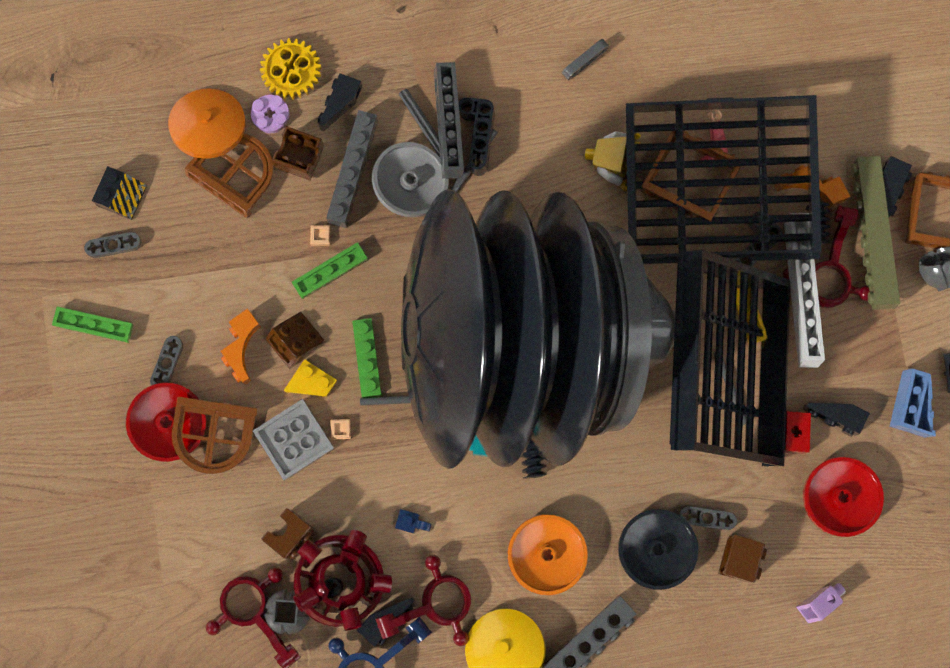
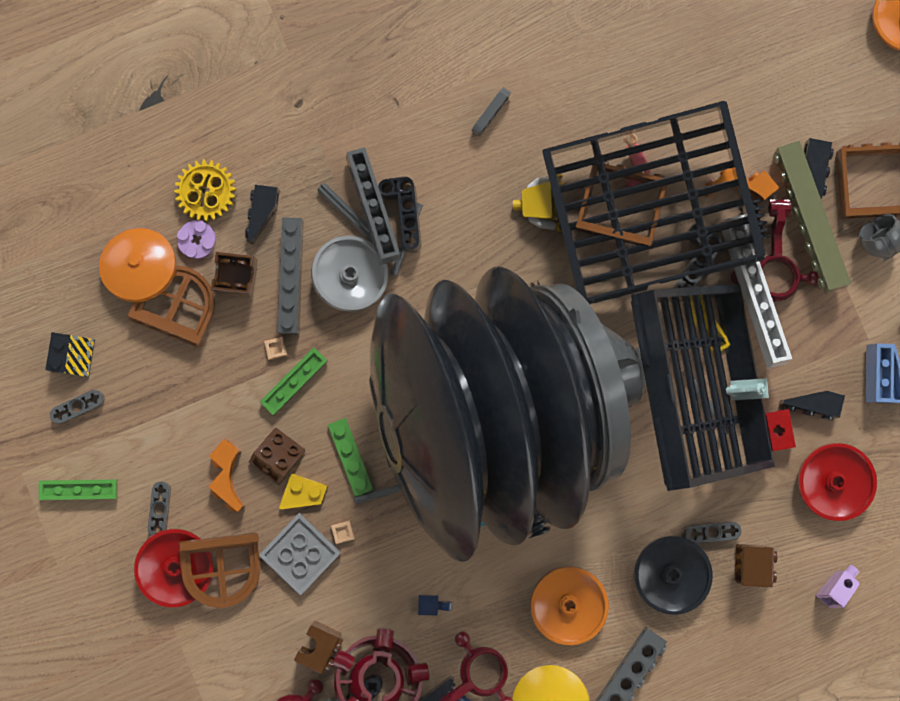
camera: 10 degrees left, 5 degrees up
(775, 383) = (748, 389): none -> light aqua hinge

